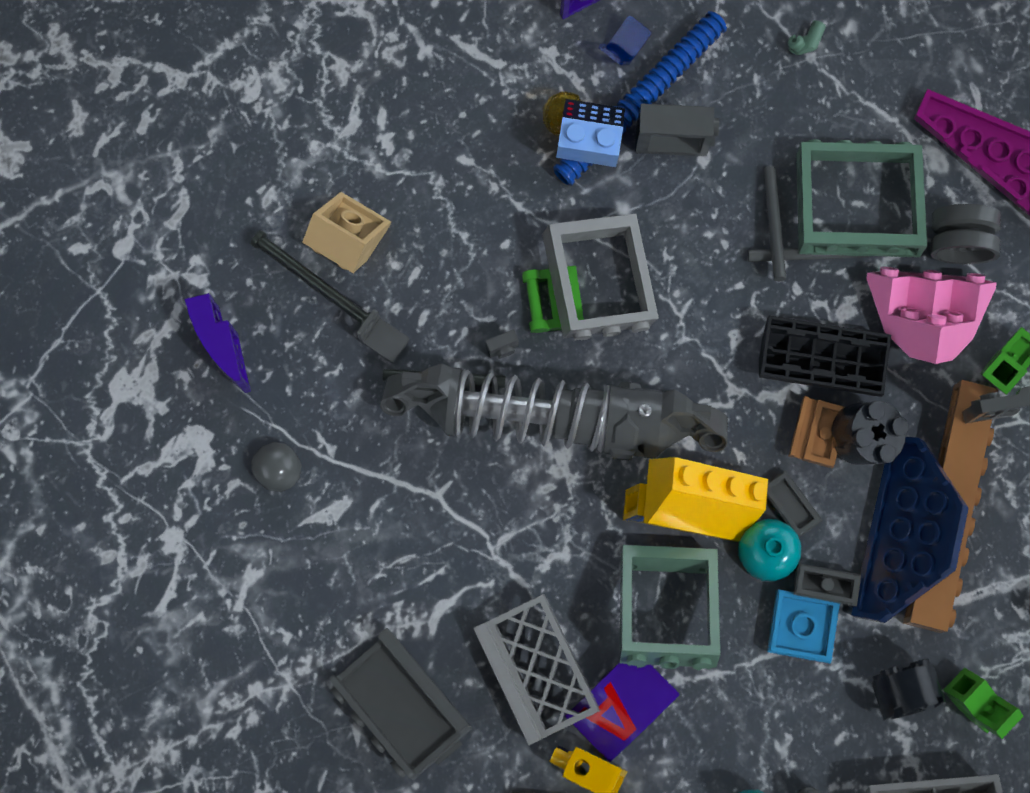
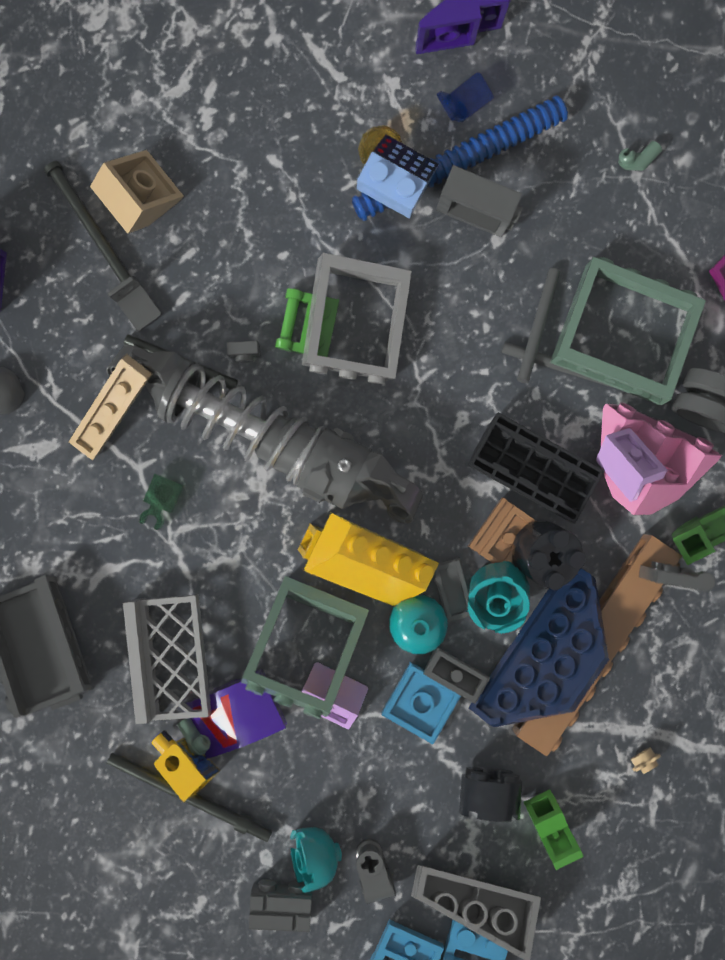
camera: 20 degrees right, 10 degrees up
(396, 440) = (110, 407): none -> tan plate
(472, 512) = (162, 496): none -> clear green plate
(597, 746) = (197, 743): none -> sand green arm
(732, 652) = (349, 697): none -> lavender panel
(836, 507) = (499, 597): none -> teal brick
(911, 317) = (629, 462): none -> lavender panel

